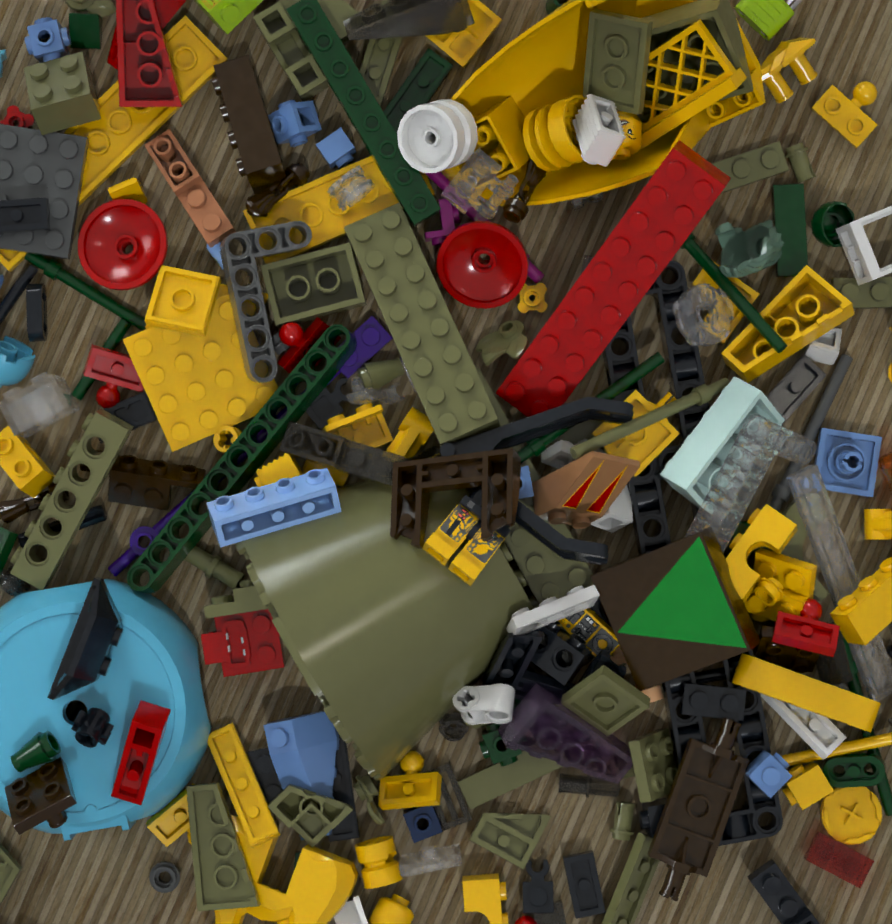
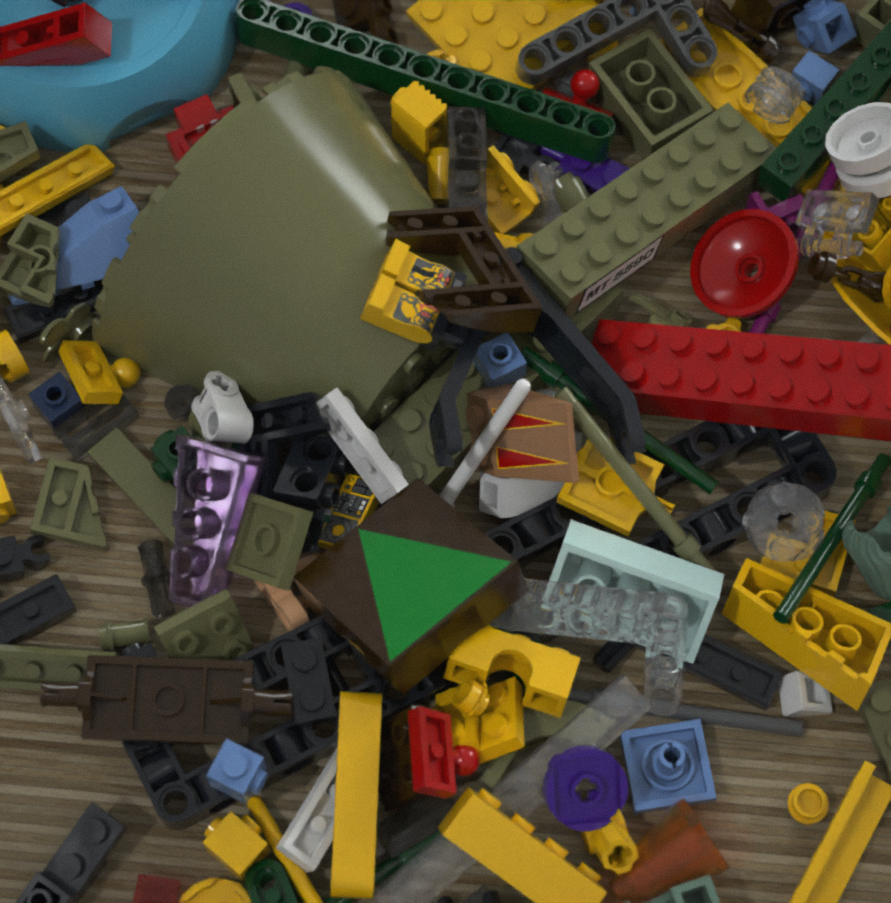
camera: 70 degrees right, 20 degrees down
(273, 507) = (380, 99): light blue brick -> none
(583, 519) = (485, 441): none -> white piece
(842, 531) = (568, 770): none -> dark purple plate

